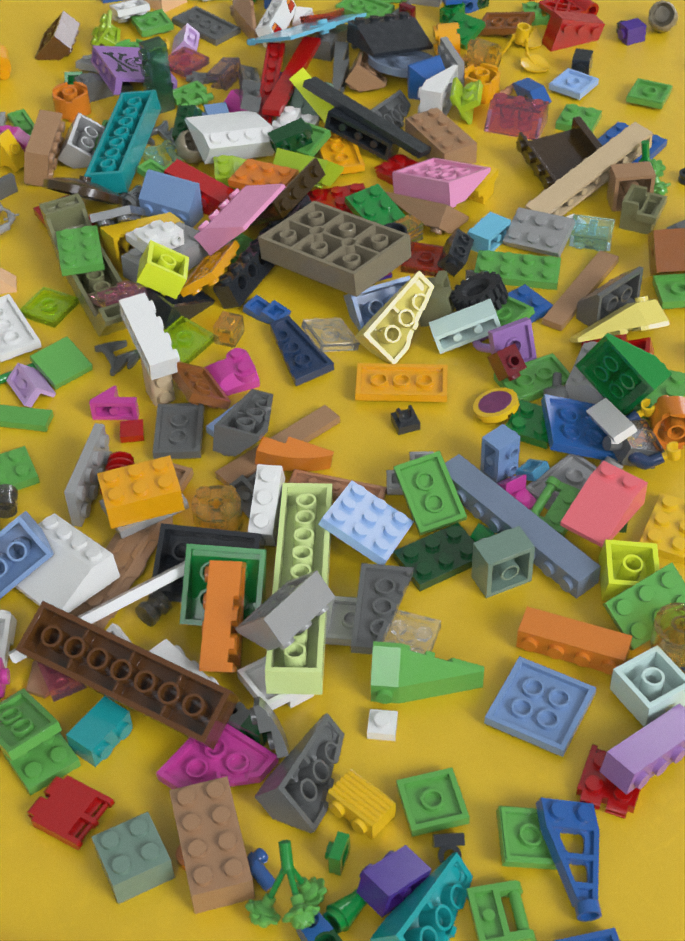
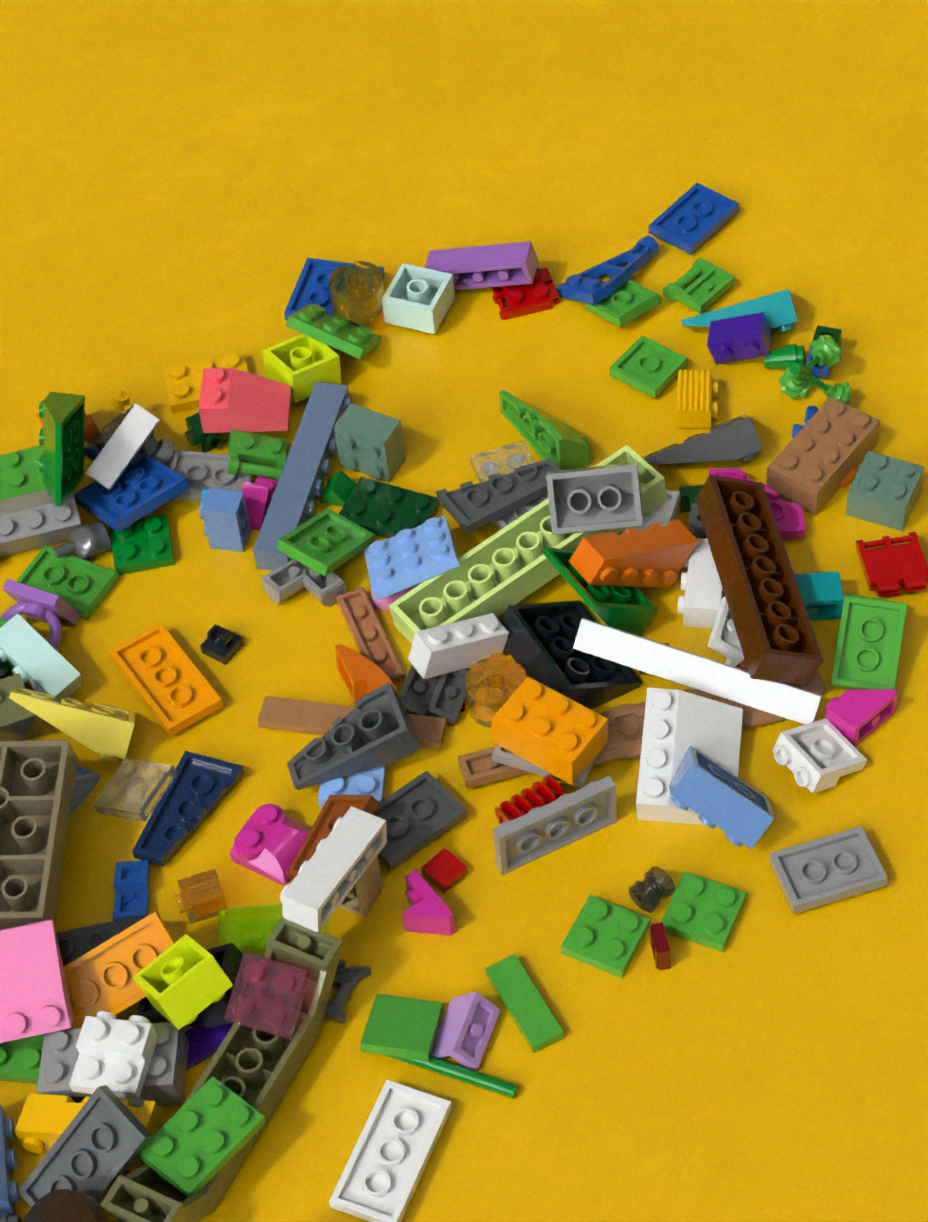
camera: 125 degrees left, 5 degrees up
(49, 306) = (306, 1148): clear neon green tile -> none
(268, 721) = (698, 472): dark grey slope -> none
(338, 852) = (748, 386): green plate -> none
(382, 725) = (607, 439): white plate -> none
(448, 841) = (673, 336): black tile -> none
(496, 405) = (142, 578): tile -> none
(507, 363) = (79, 584): dark red brick -> none
(540, 706) = (495, 357): medium blue plate -> none
(573, 640) = (410, 369): orange brick -> none

